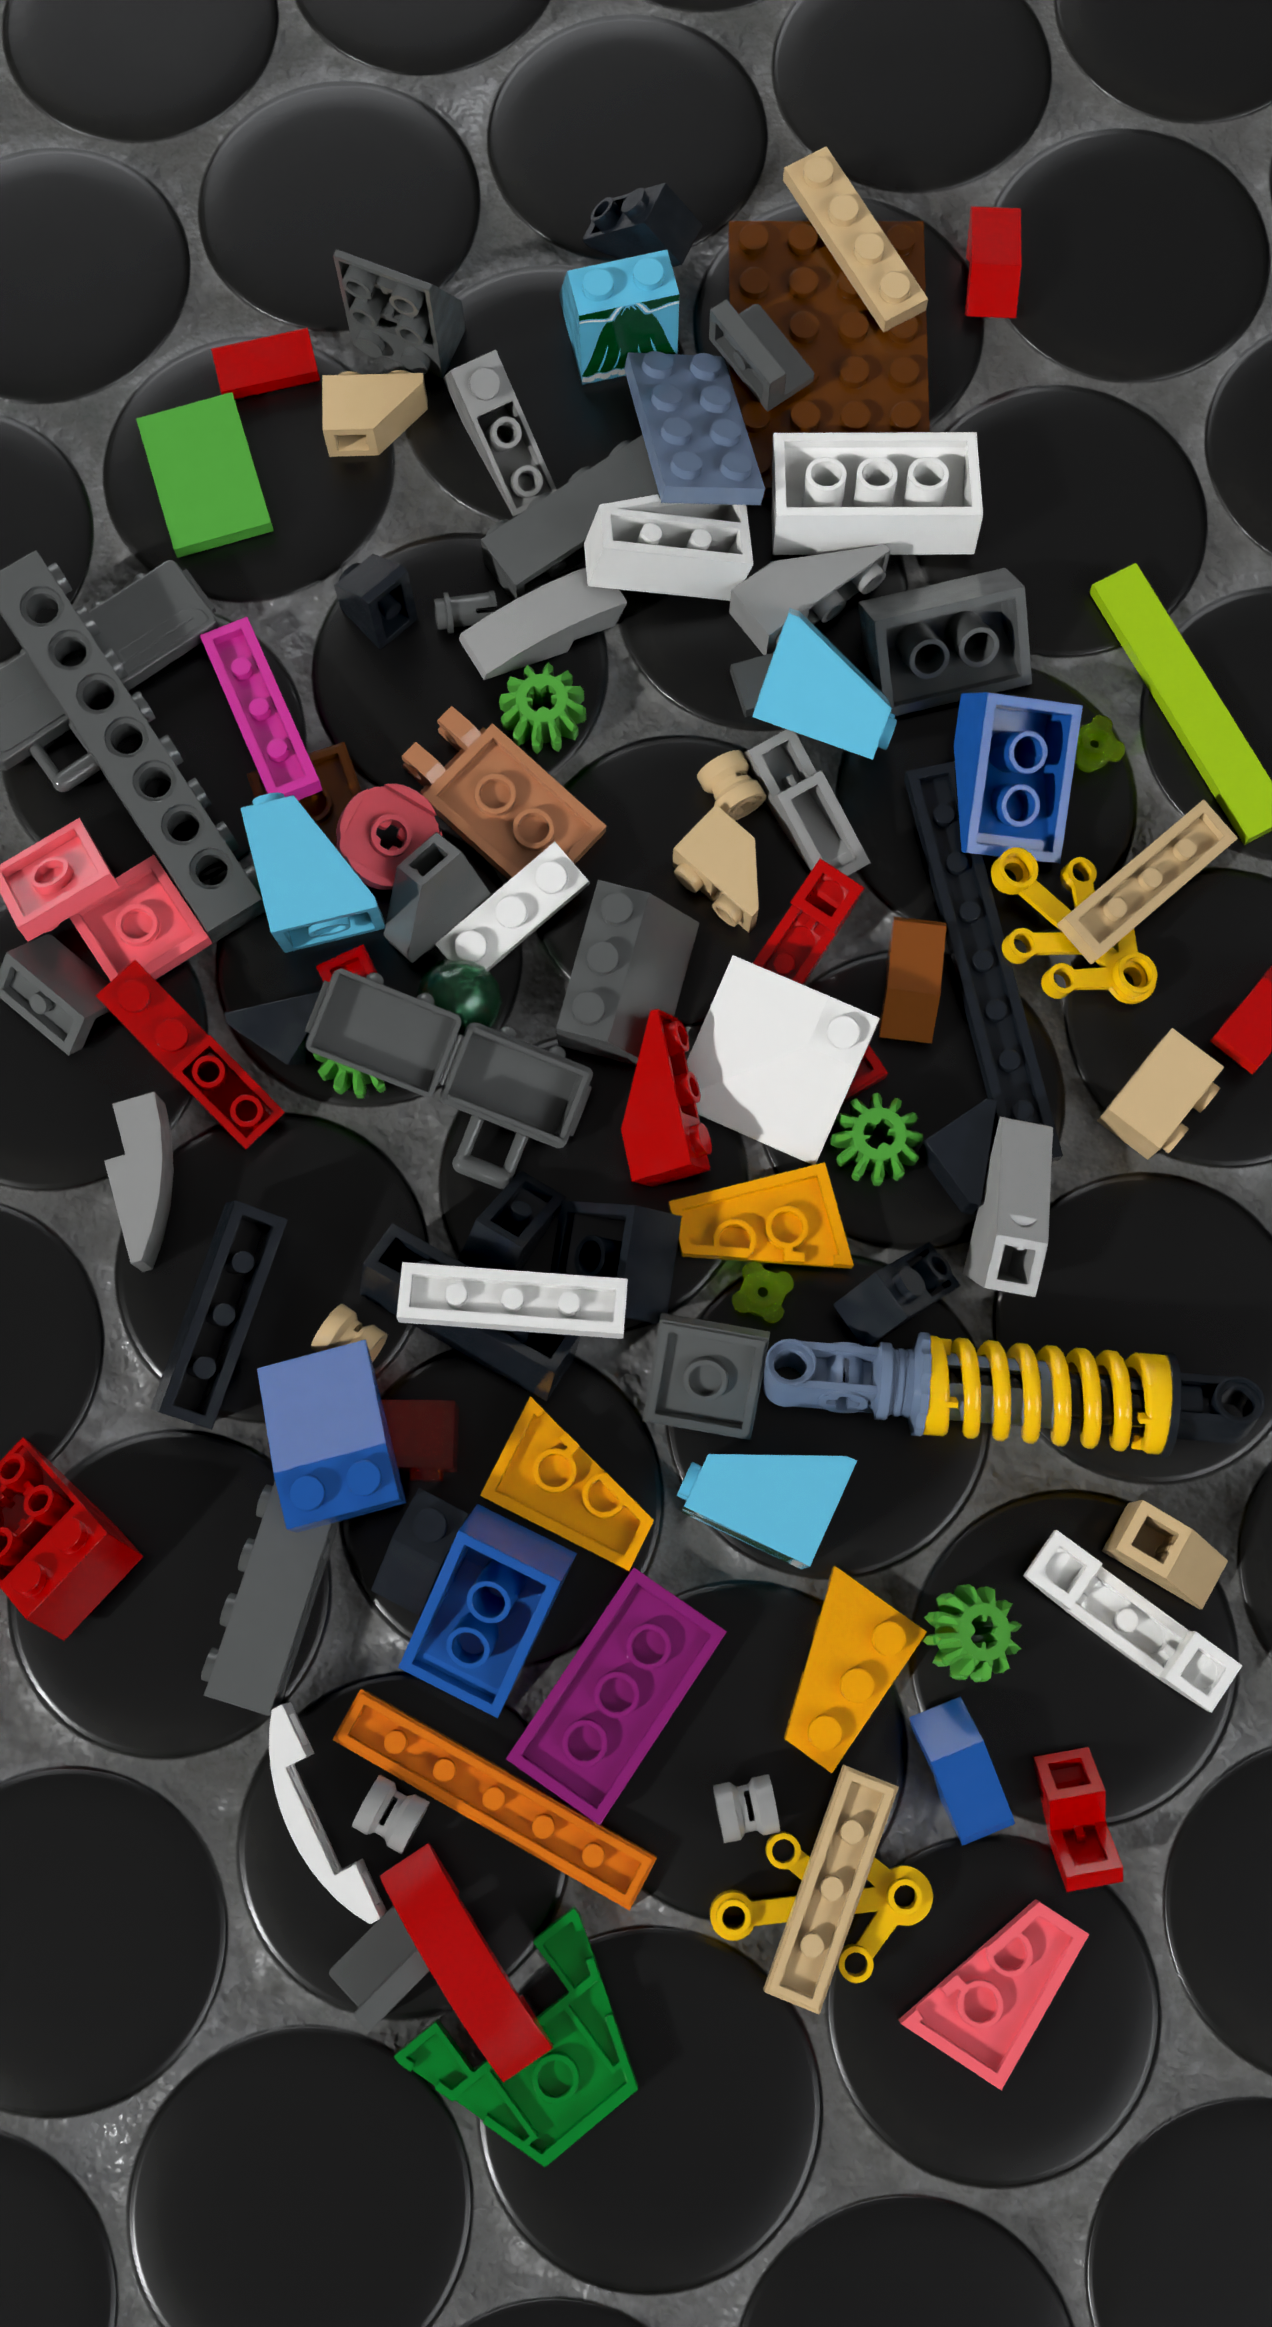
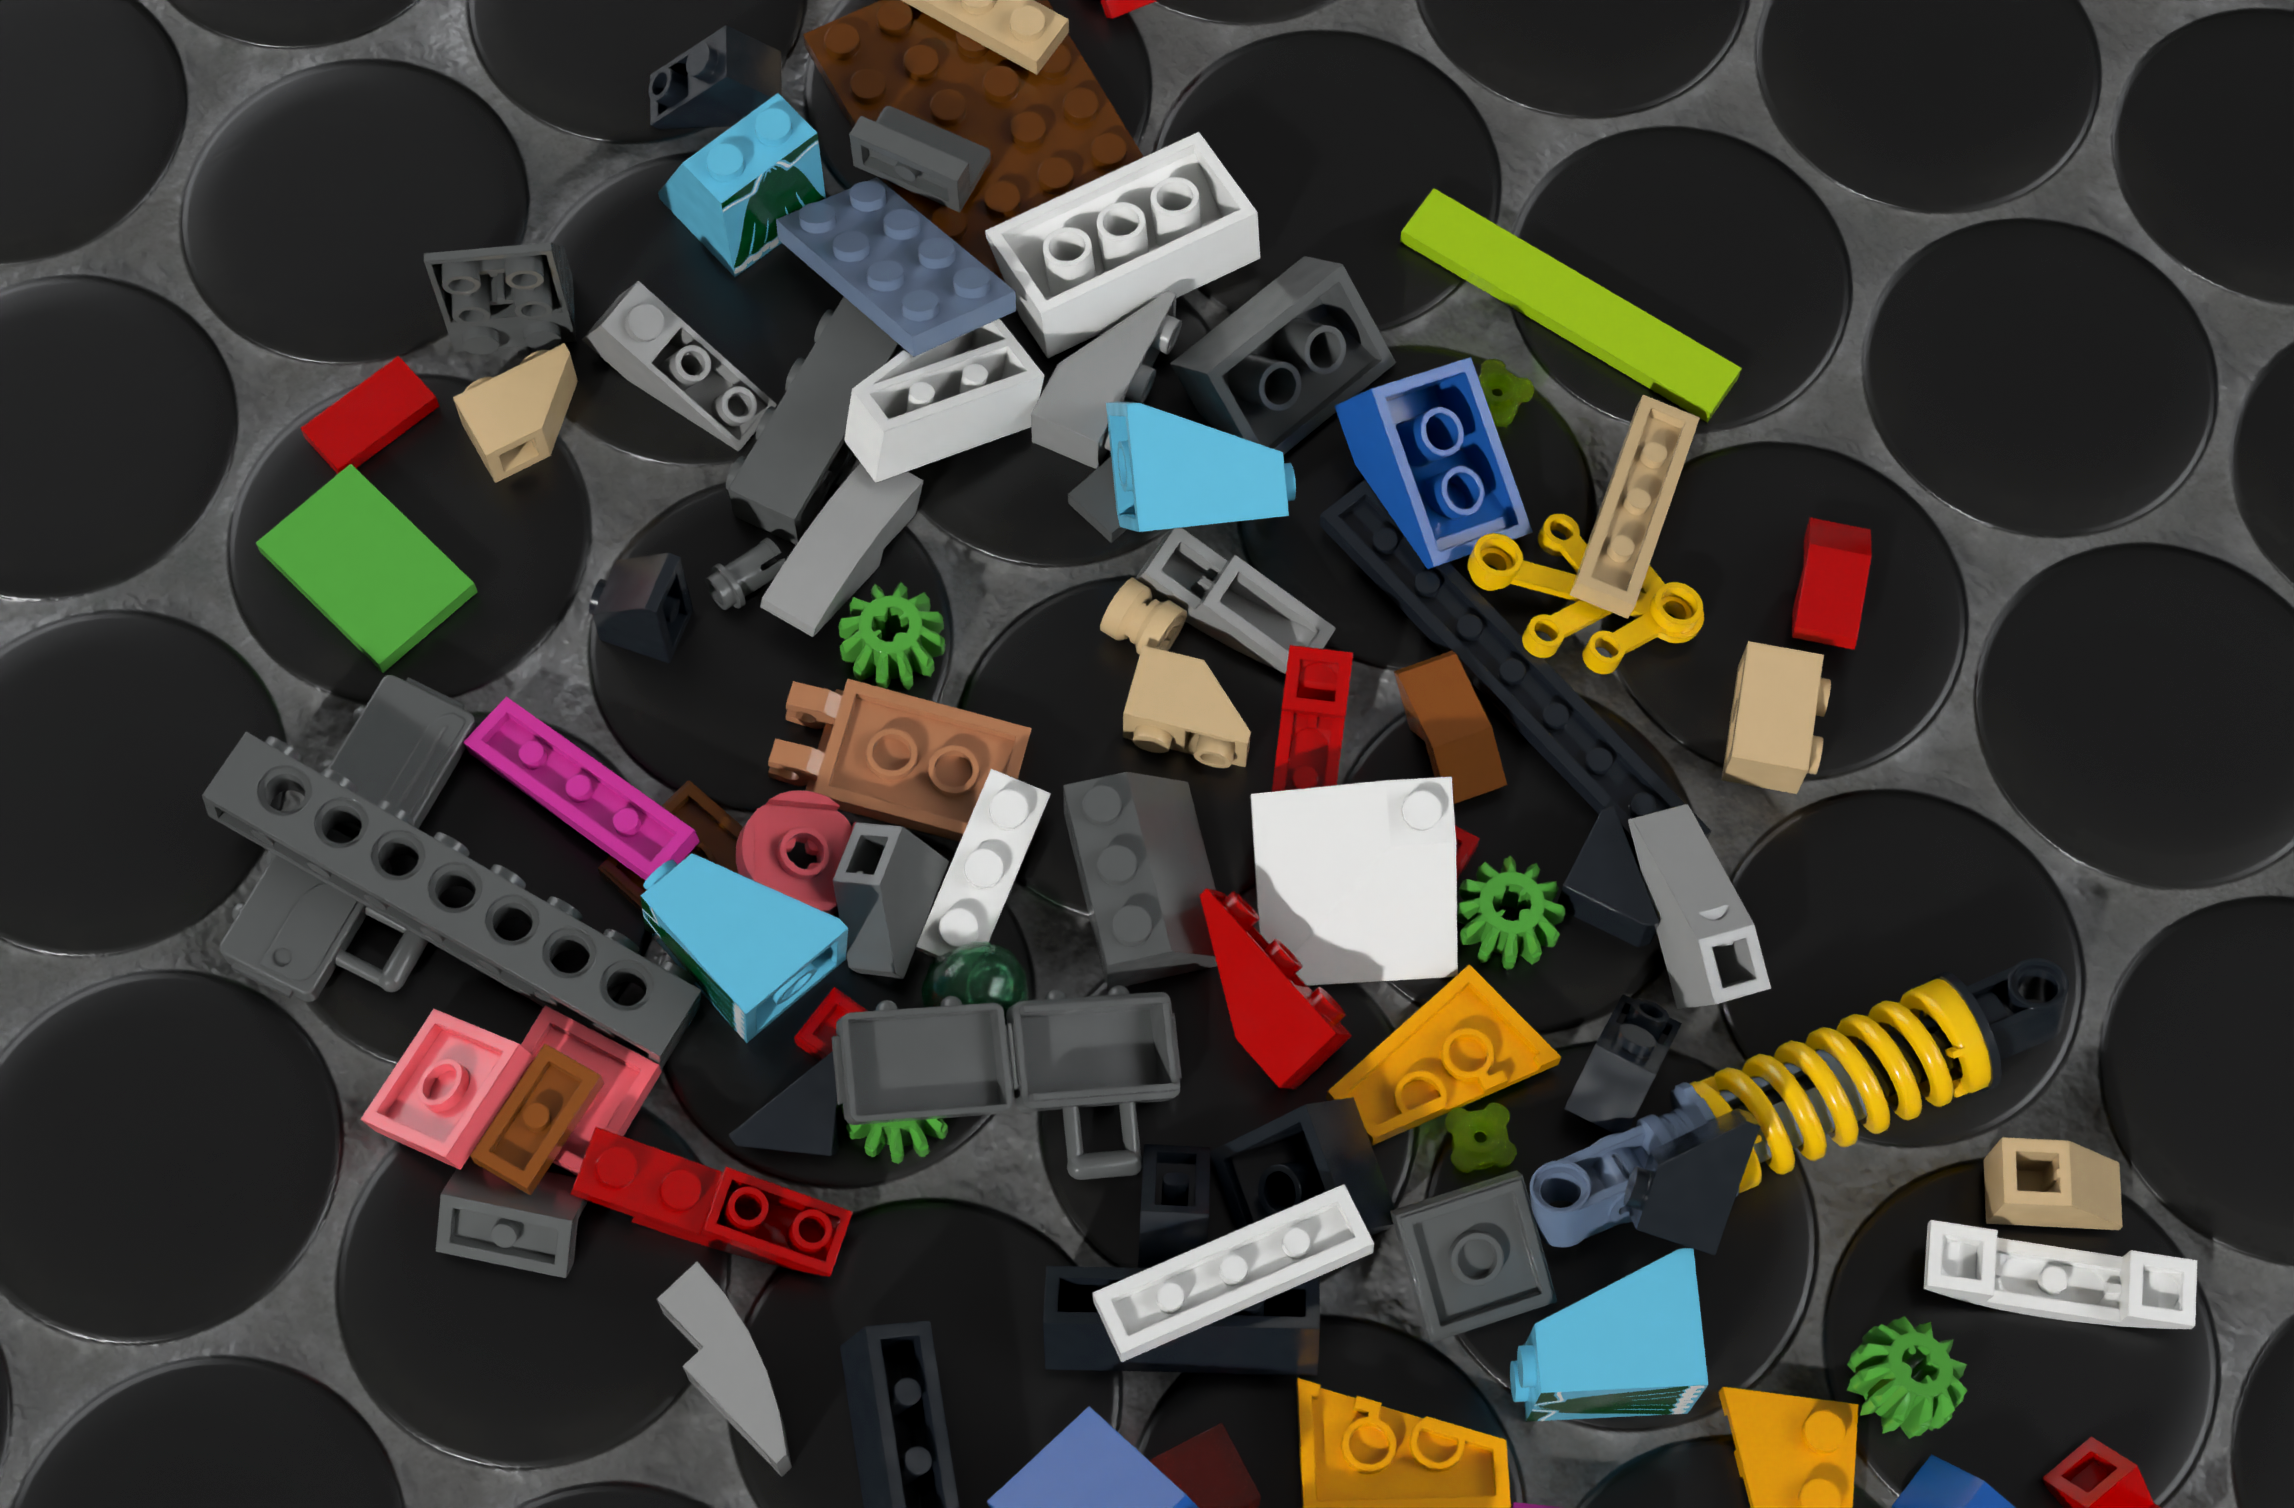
camera: 30 degrees left, 10 degrees down
(99, 933) = (537, 1119): none -> dark orange plate
(344, 1328) = (1052, 1414): tan wheel -> none
(884, 1413) = (1693, 1182): none -> black slope

